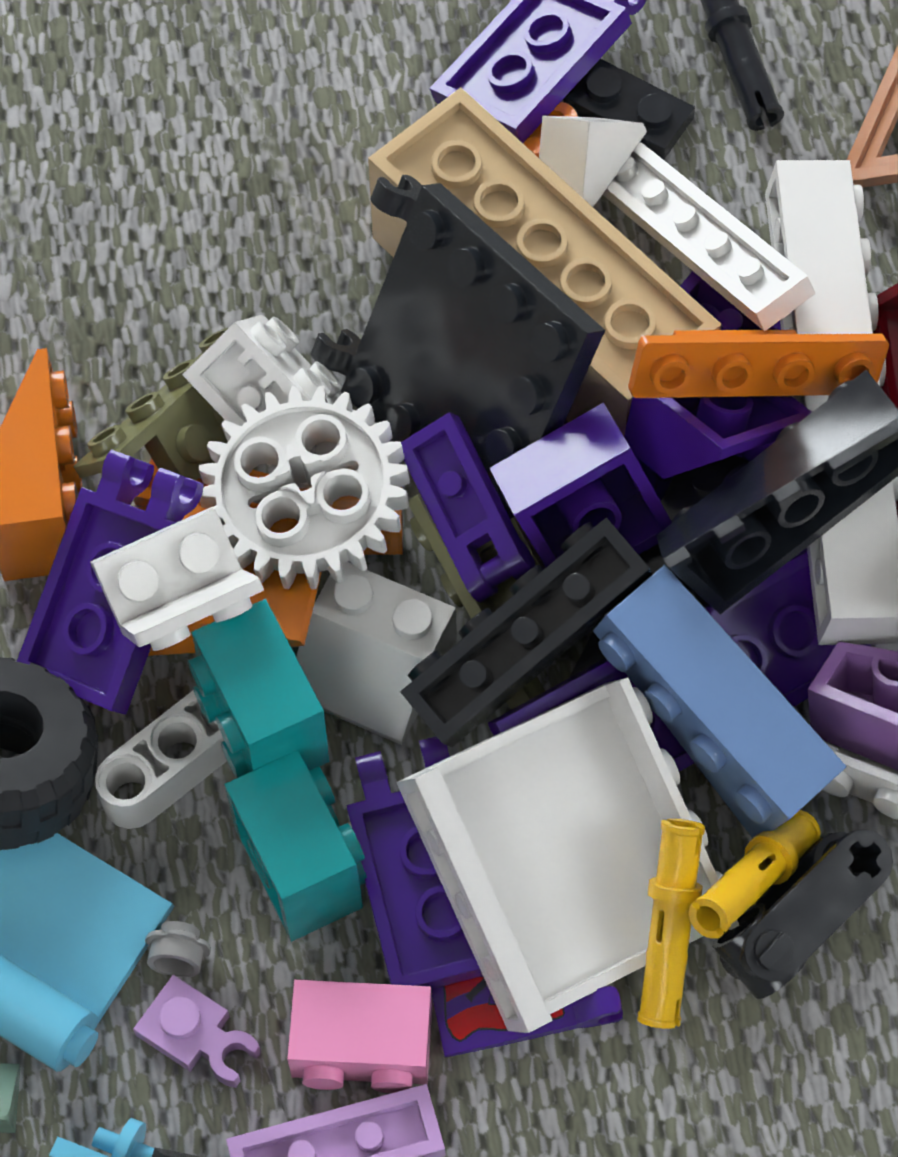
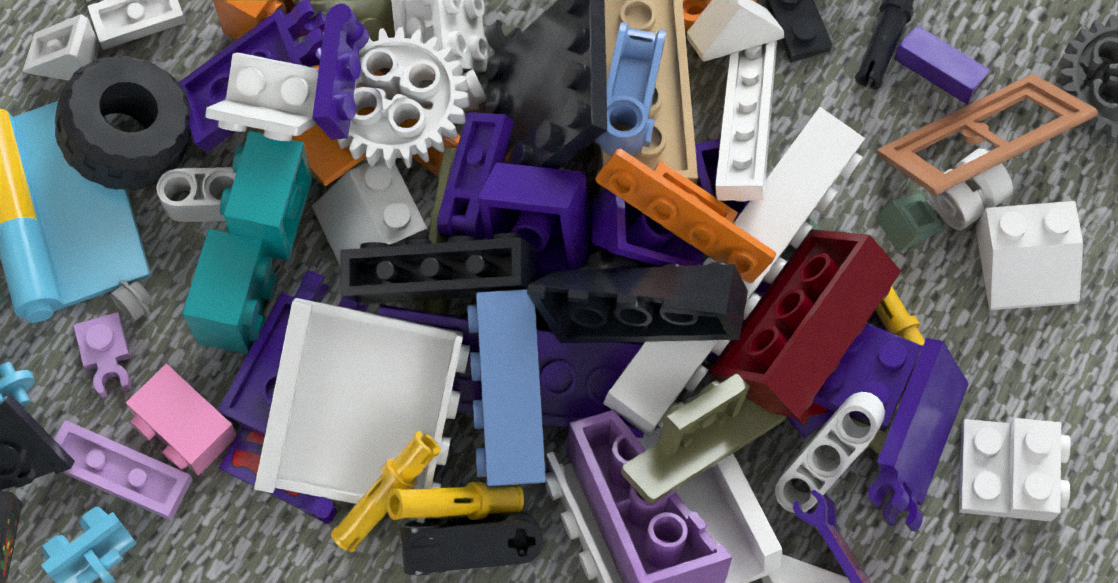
camera: 35 degrees right, 5 degrees up
(228, 493) = (338, 71): none -> dark purple plate
(568, 254) = (632, 89): none -> medium blue piece
(823, 49) = (941, 64): none -> slope

